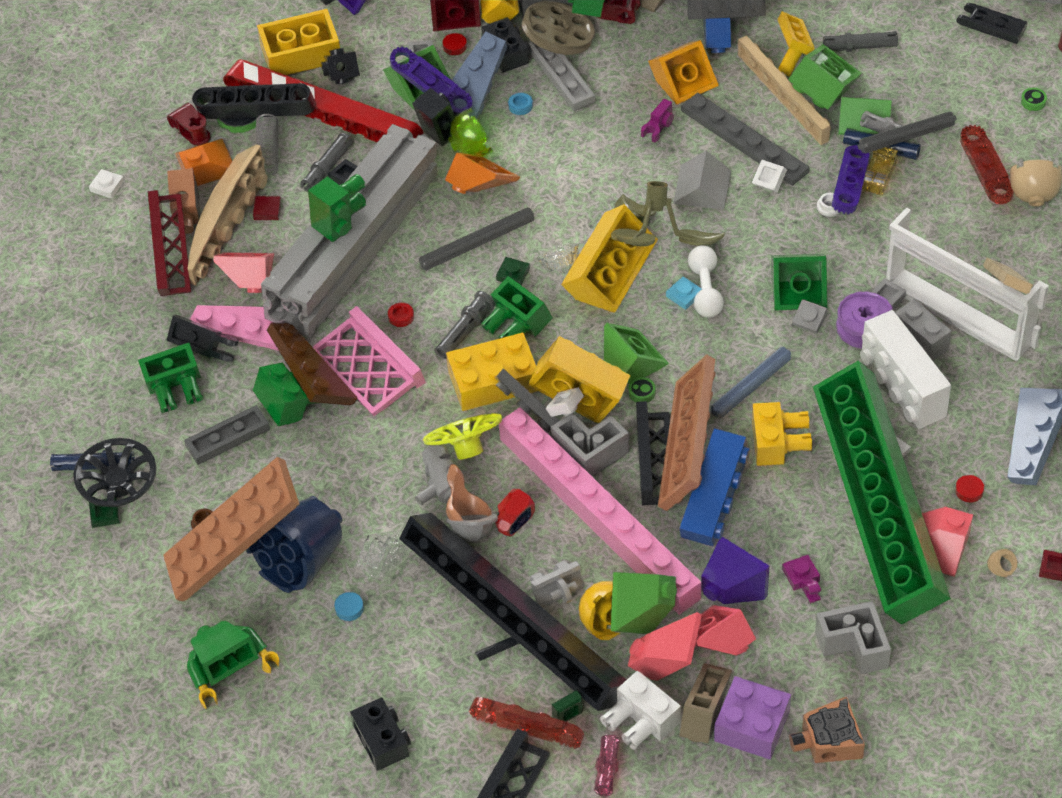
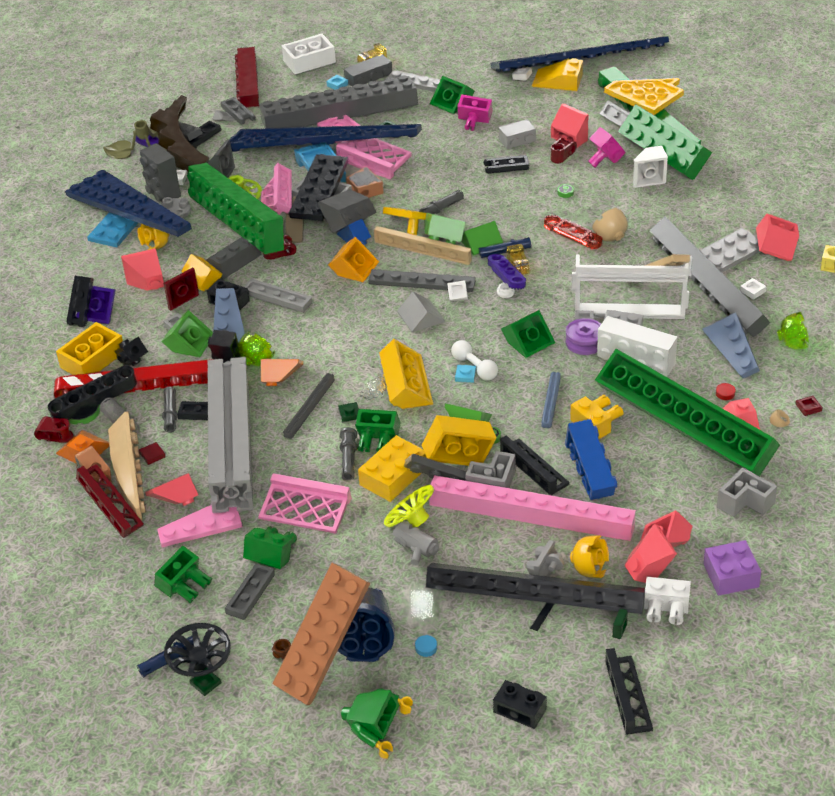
camera: 35 degrees left, 10 degrees down
(106, 183) = (23, 492): white plate -> none
(201, 338) = (168, 546): black hinge -> none
(309, 368) = (270, 522): reddish brown wing -> none
(334, 205) = (223, 413): green brick -> none
(400, 314) = (299, 469): red tile -> none
(426, 76) = (197, 328): dark purple plate -> none
(454, 44) = (193, 308): red tile -> none
(466, 512) = (453, 550): piece -> none
(514, 512) = (480, 535): red rock -> none
(520, 103) = (266, 323): dark azure tile -> none
(535, 724) = (597, 646): clear red plate -> none
(557, 28) = (254, 272): dark tan wedge -> none
(565, 402) = (462, 456): white plate -> none
(606, 765) = (680, 651): clear pink pin -> none
(641, 601) = (614, 535): bright green slope -> none
(655, 201) = (412, 325): olive plant -> none
(660, 118) = (364, 292): magenta plate -> none
(687, 433) = (548, 439): nougat plate -> none
(704, 703) = (703, 578): dark tan slope -> none
(734, 575) = (650, 496): dark purple slope -> none
(804, 575) = (681, 481): magenta plate -> none
(809, 316) = (551, 350): light grey plate -> none
(830, 733) = (782, 552): torso -> none
(878, 123) = (500, 236): light grey pin -> none
(906, 132) = (515, 235): dark grey axle -> none

